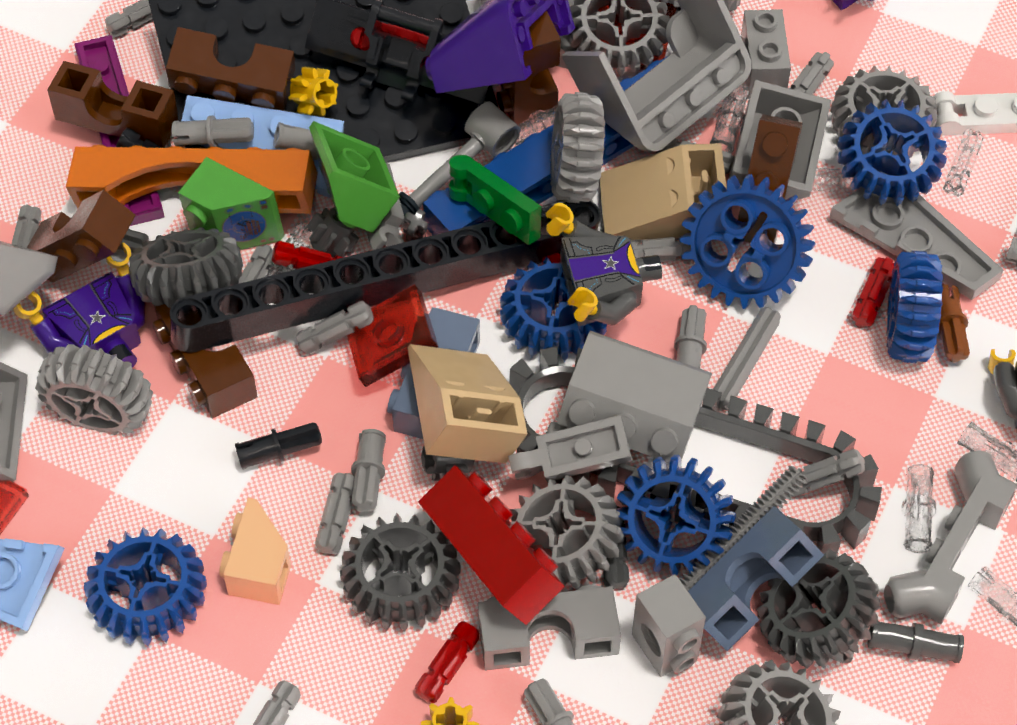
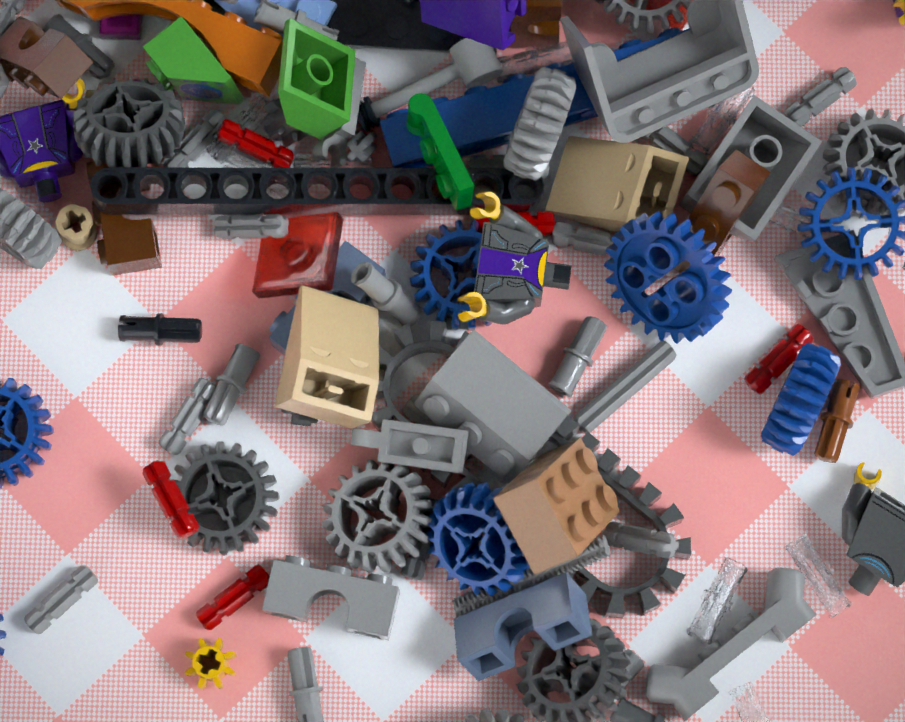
camera: 25 degrees right, 20 degrees up
(163, 376) = (69, 215): none -> tan bush
(258, 559) = (103, 438): light nougat slope -> none
(352, 577) = (170, 499): none -> red axle
(488, 338) = (386, 294): none -> light grey pin
(491, 544) = (303, 511): red brick -> none
(668, 626) = (431, 644): light grey brick -> none
(739, 451) = (557, 505): none -> medium nougat brick
(767, 45) = (788, 53): light grey brick -> none

